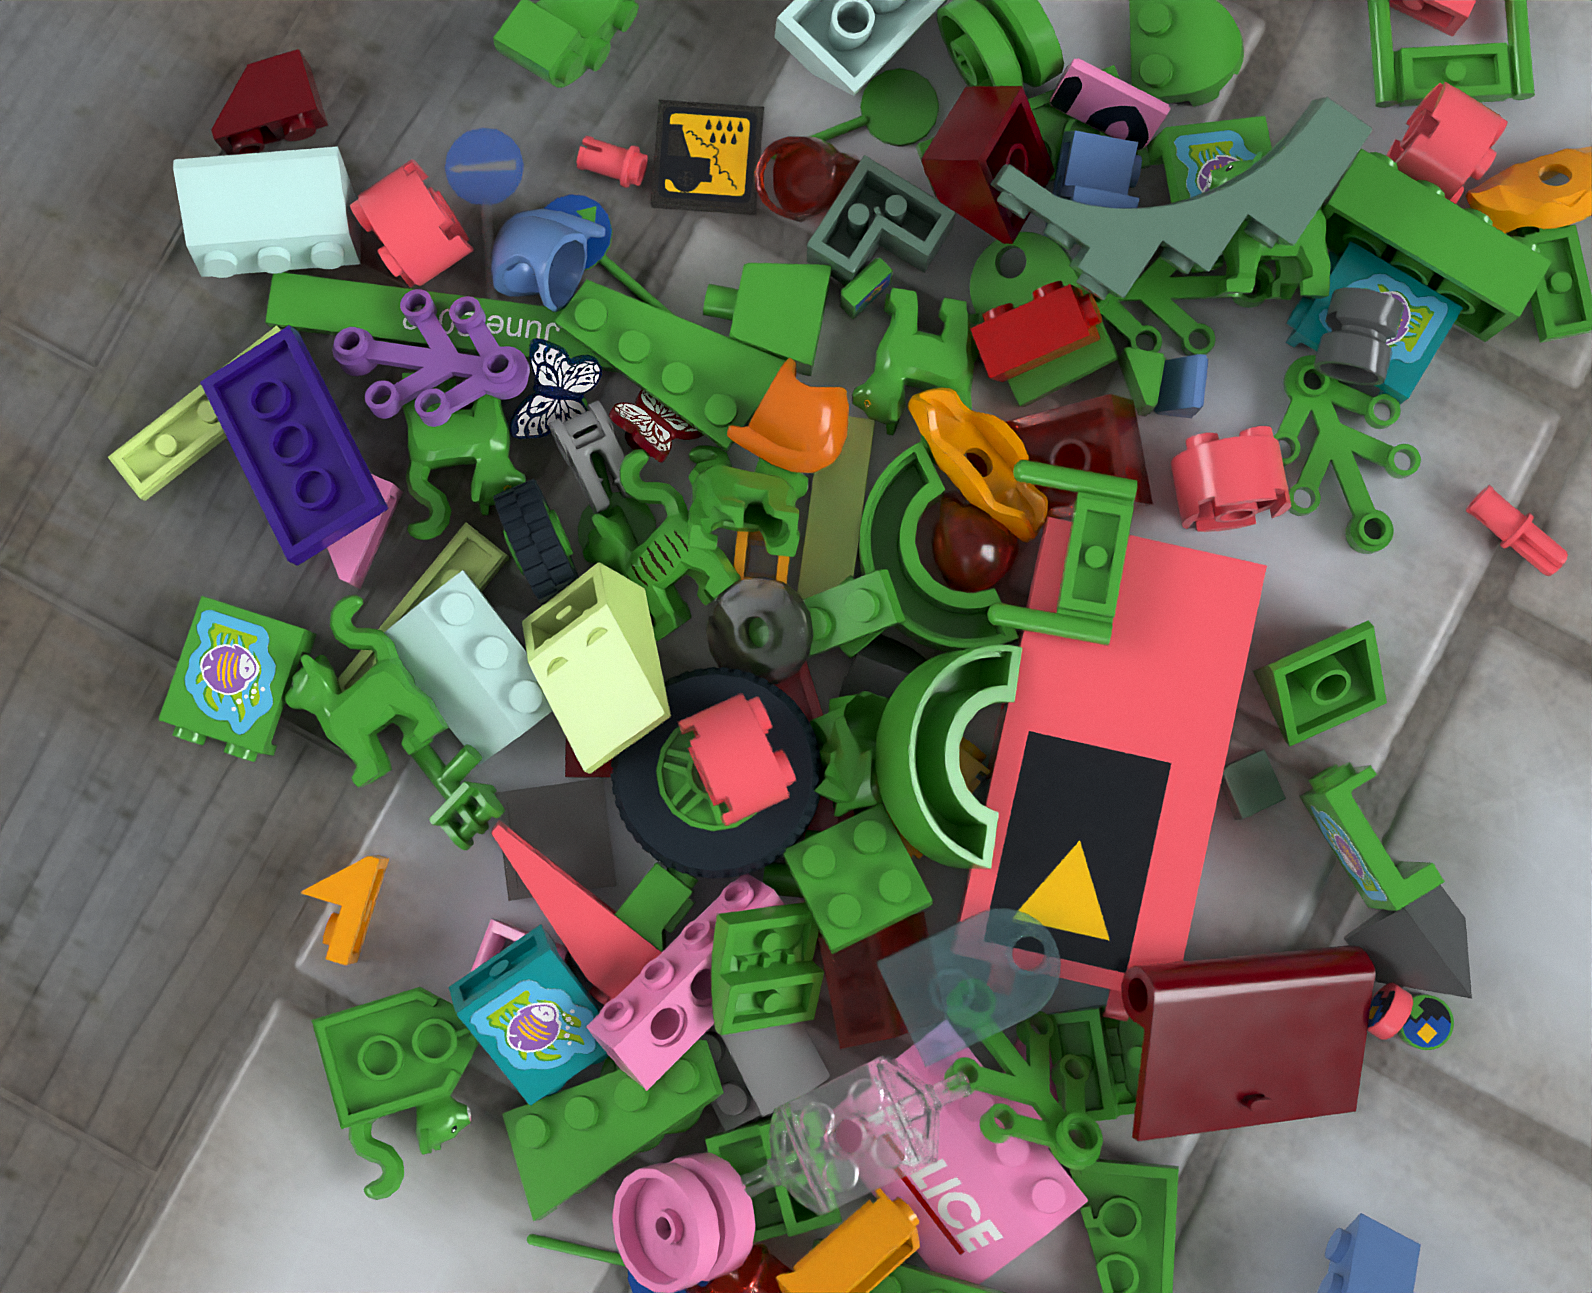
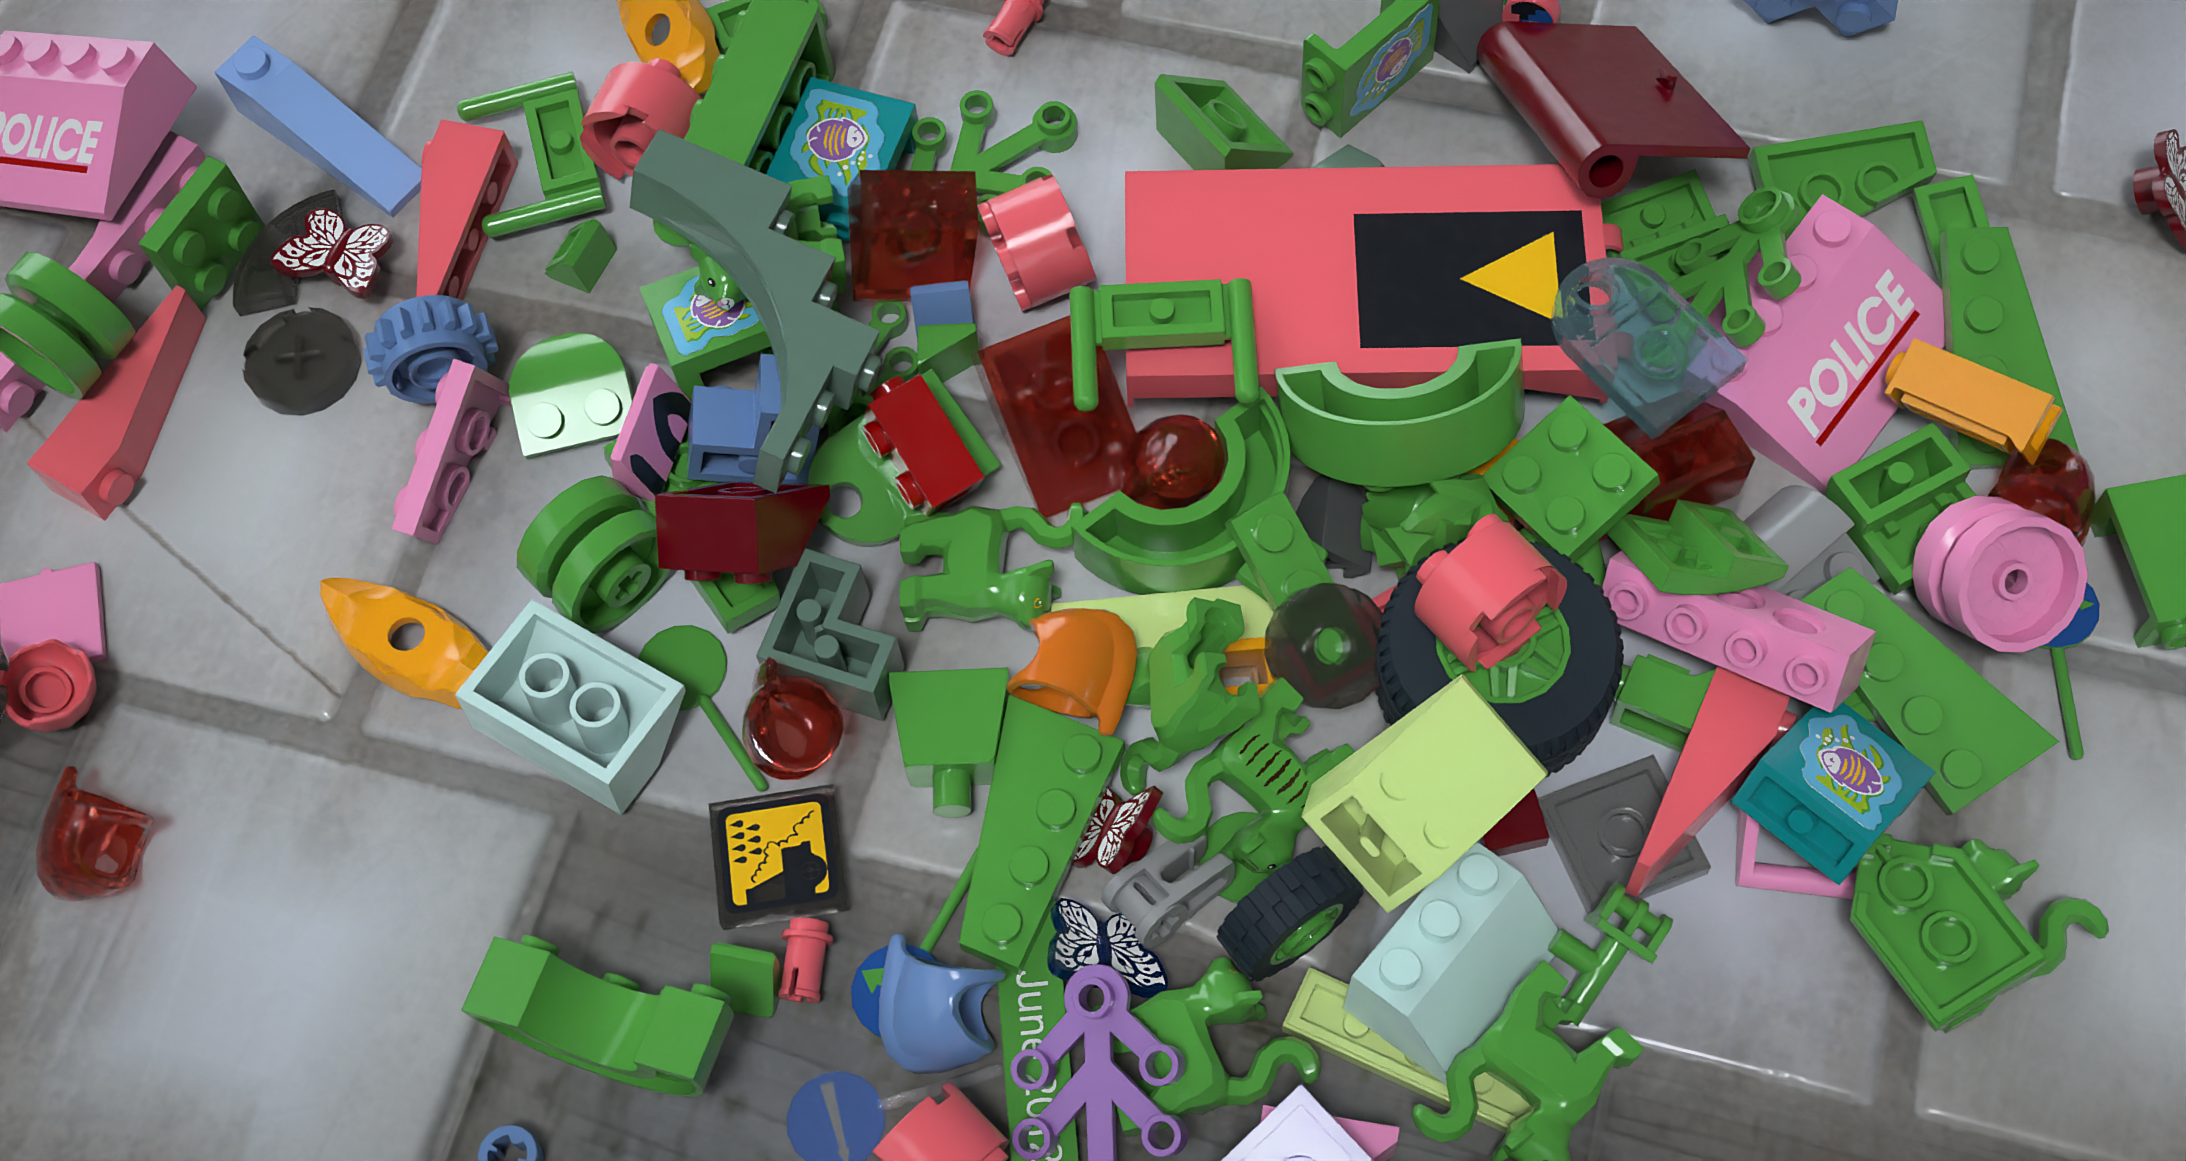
camera: 100 degrees left, 20 degrees down
(357, 893) = (1763, 1040): light orange slope -> none
(609, 113) = (748, 977): none -> bright green slope
(865, 287) = (915, 646): bright green tile -> none
(897, 1125) = (1859, 459): clear plate -> none
(956, 430) = (1096, 451): light orange piece -> none
(1261, 367) = (910, 231): none -> clear red slope
(1328, 75) = (582, 256): none -> bright green slope
(1357, 344) = (863, 140): dark grey wheel -> none

